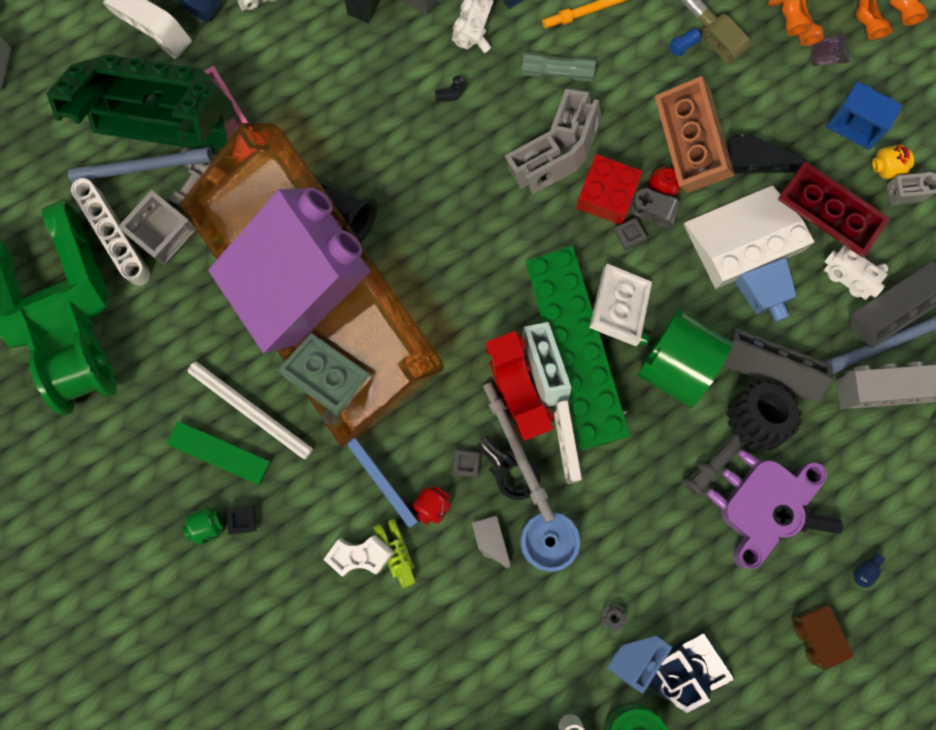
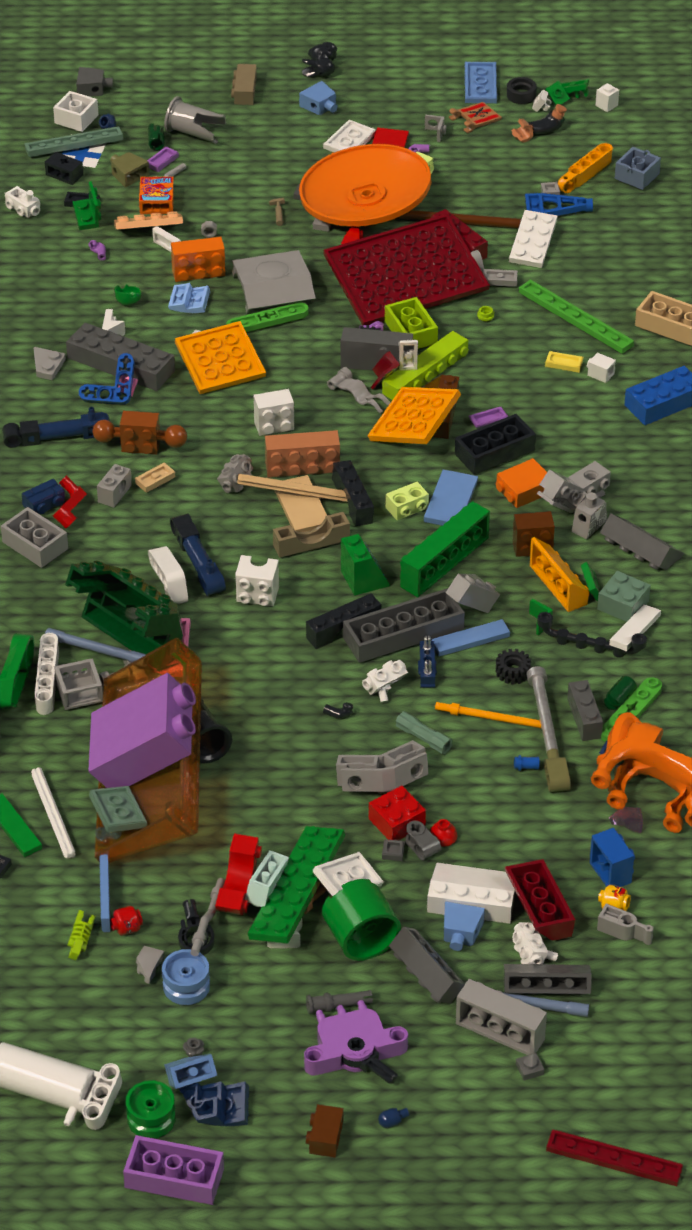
camera: 30 degrees right, 35 degrees down
(370, 555) = (60, 921): white tile -> none
(466, 463) = (169, 915): dark grey tile -> none
(567, 443) = (238, 935): white tile -> none
(694, 135) = (480, 810): nougat brick -> none
(755, 155) = (515, 846): black slope -> none
(775, 404) = (391, 984): black tyre -> none

